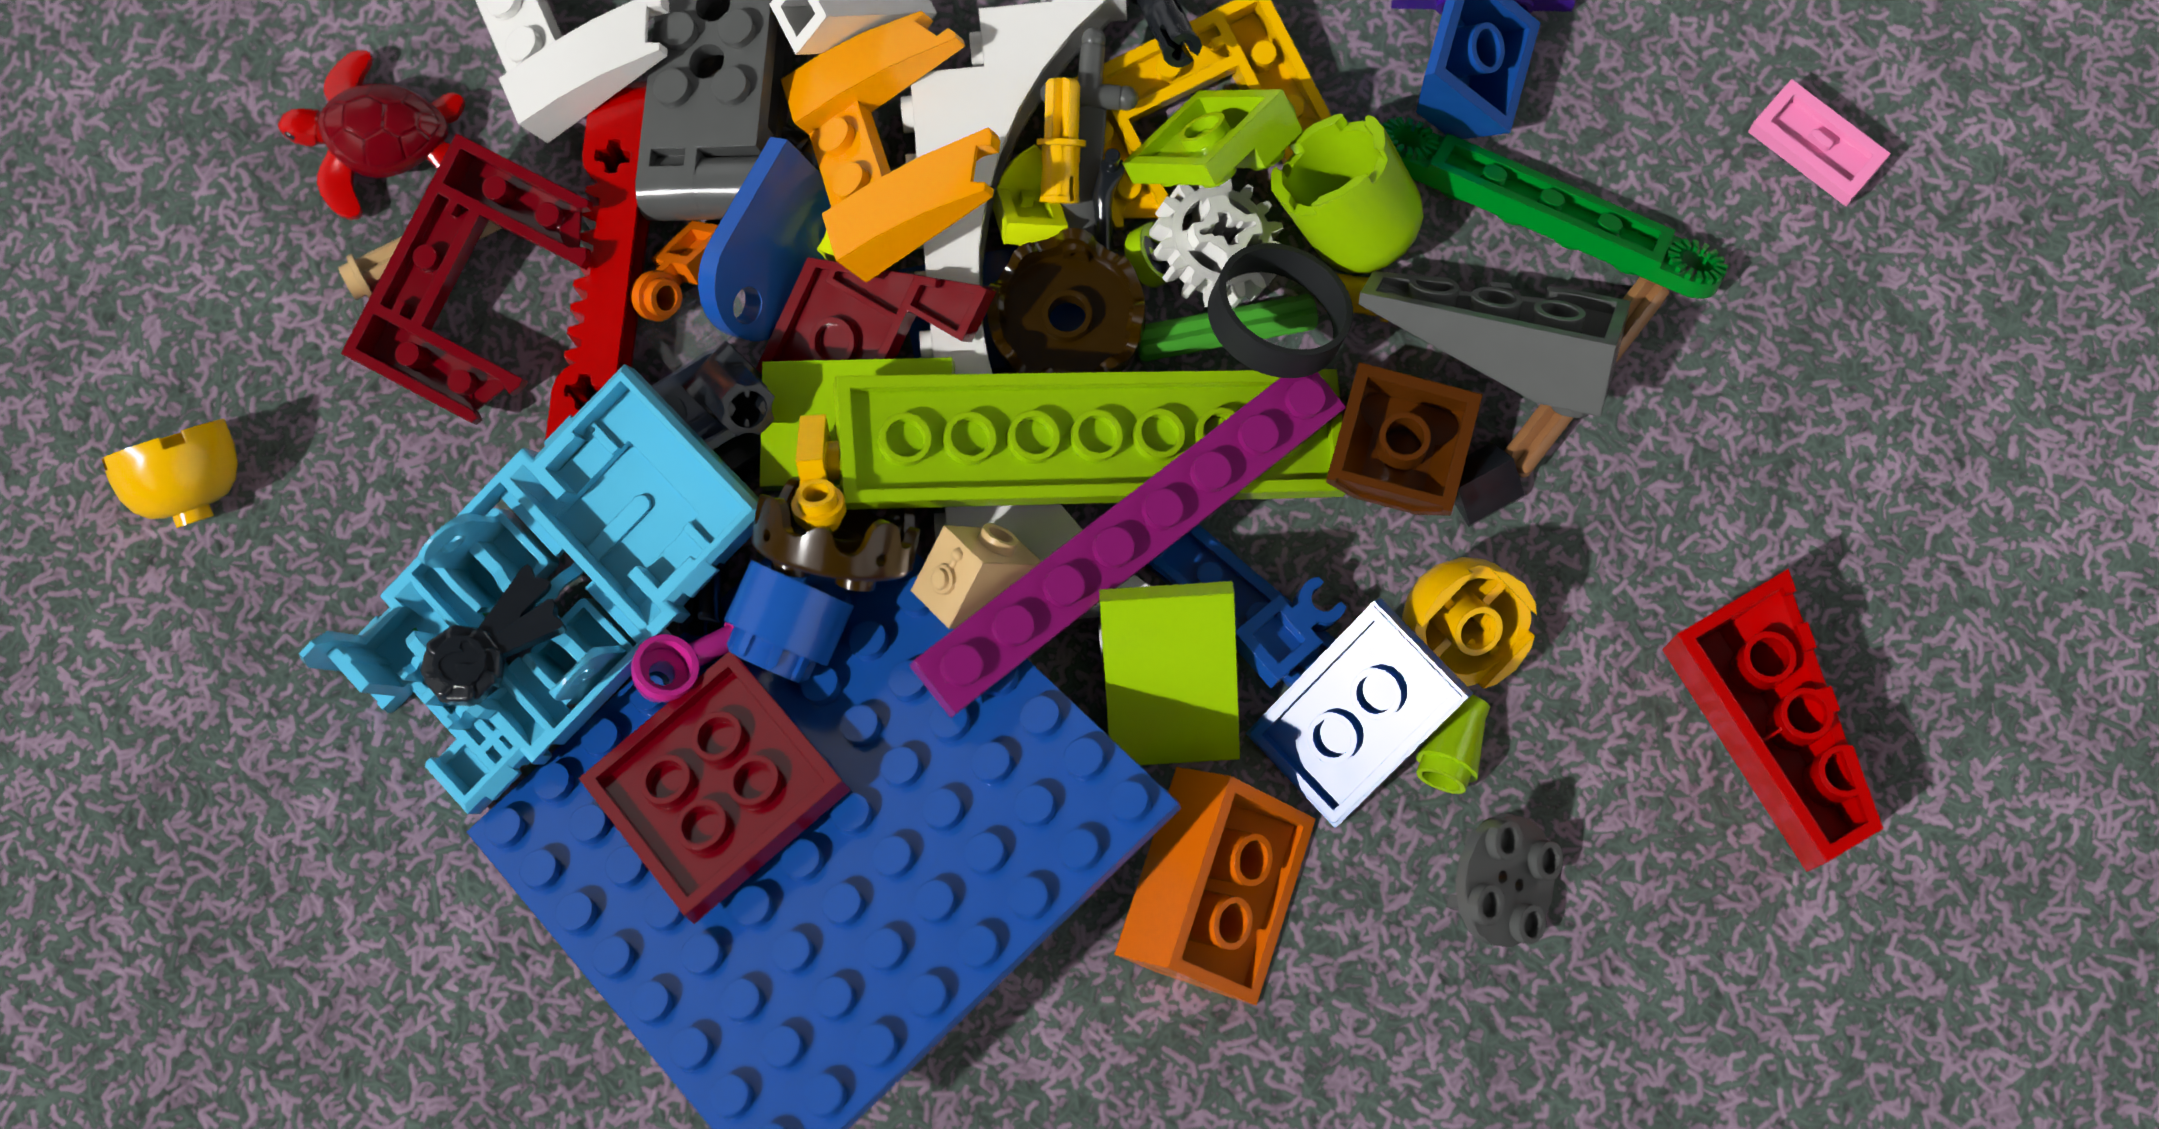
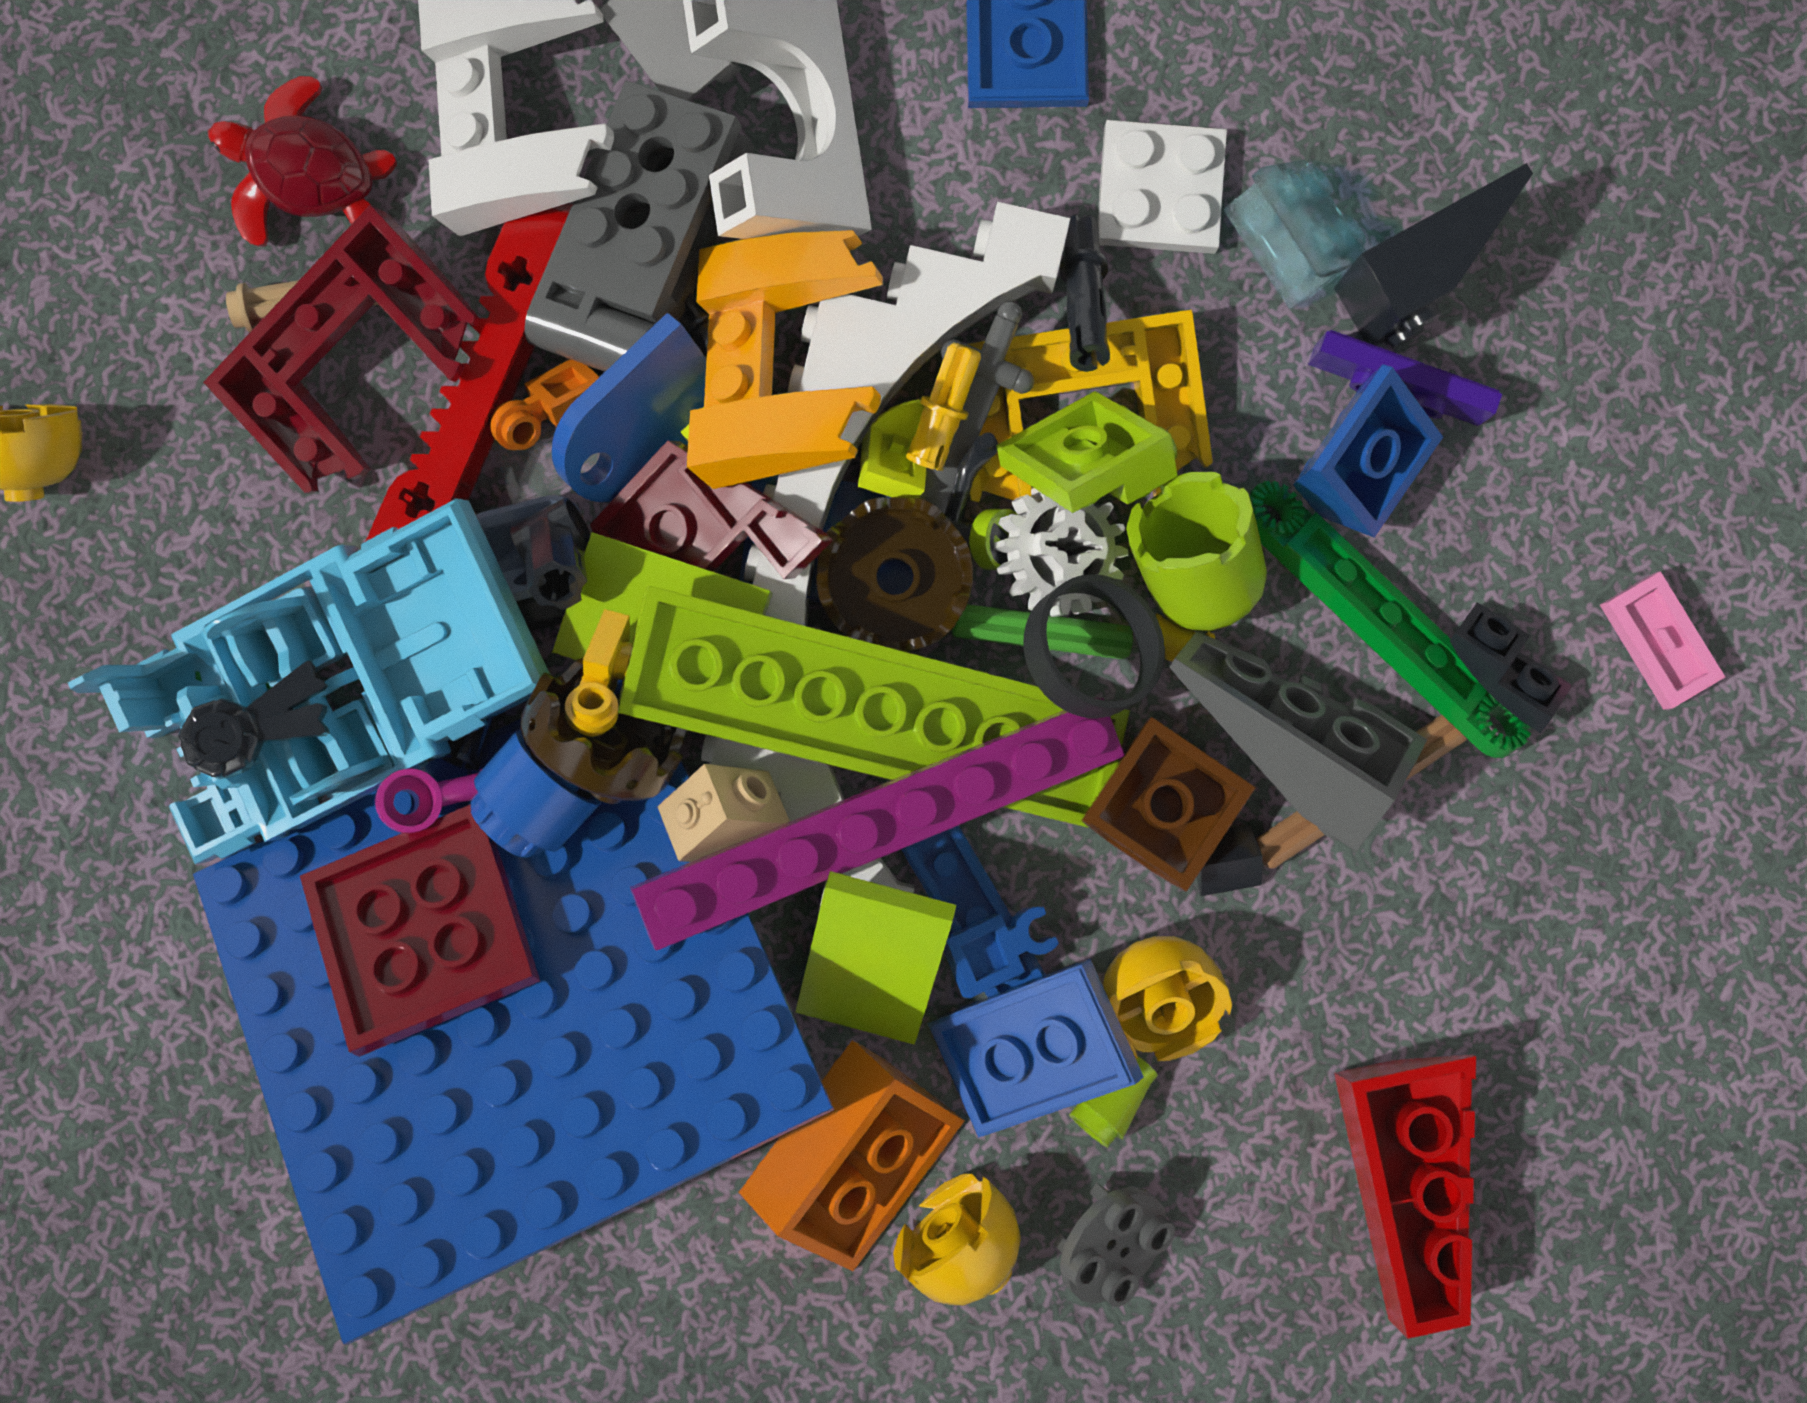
camera: 10 degrees right, 10 degrees up
(1357, 931) = (962, 1245): none -> yellow cylinder
(1663, 204) = (1491, 652): none -> black slope

